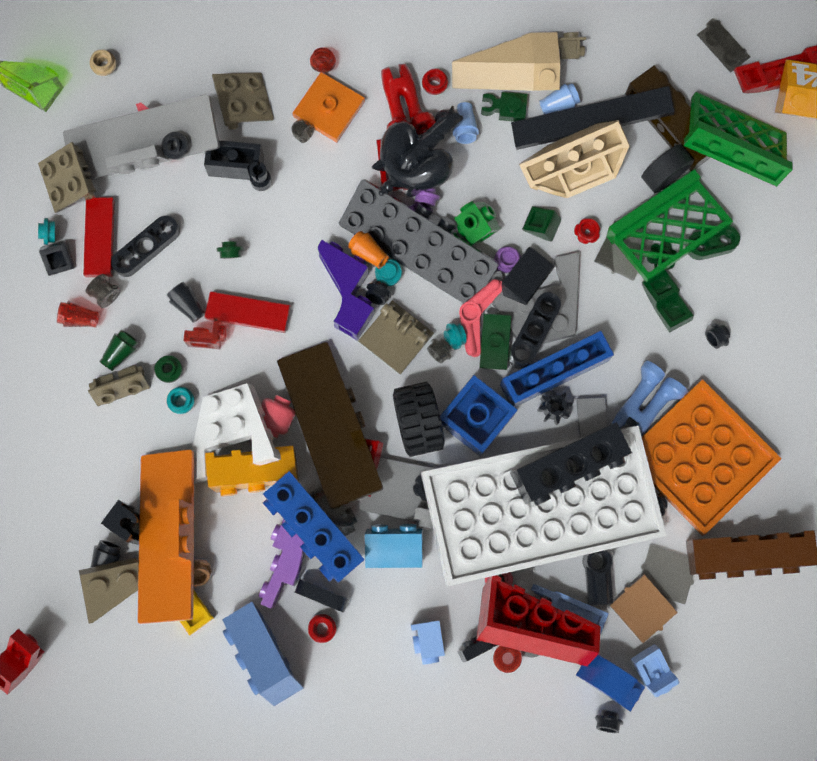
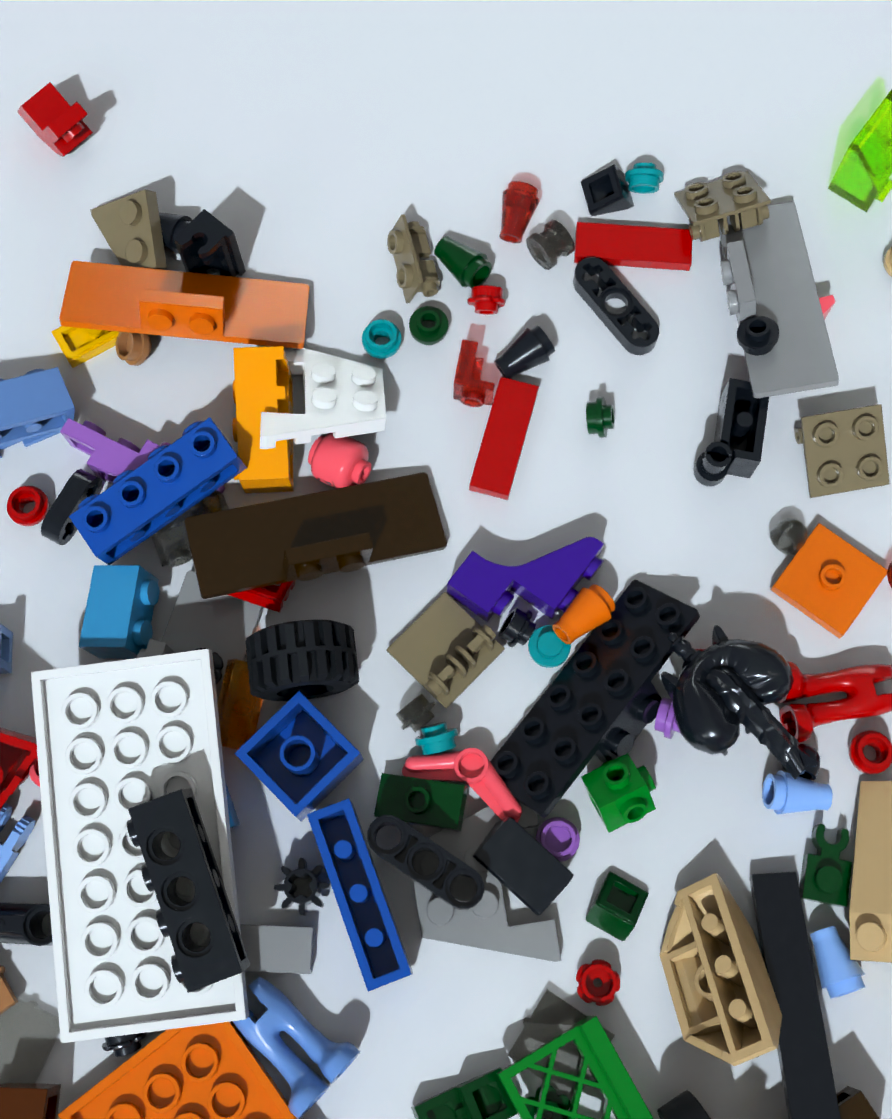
camera: 100 degrees right, 5 degrees down
(147, 331) = (486, 299): none -> red plate
(443, 458) = (237, 707): none -> clear orange slope

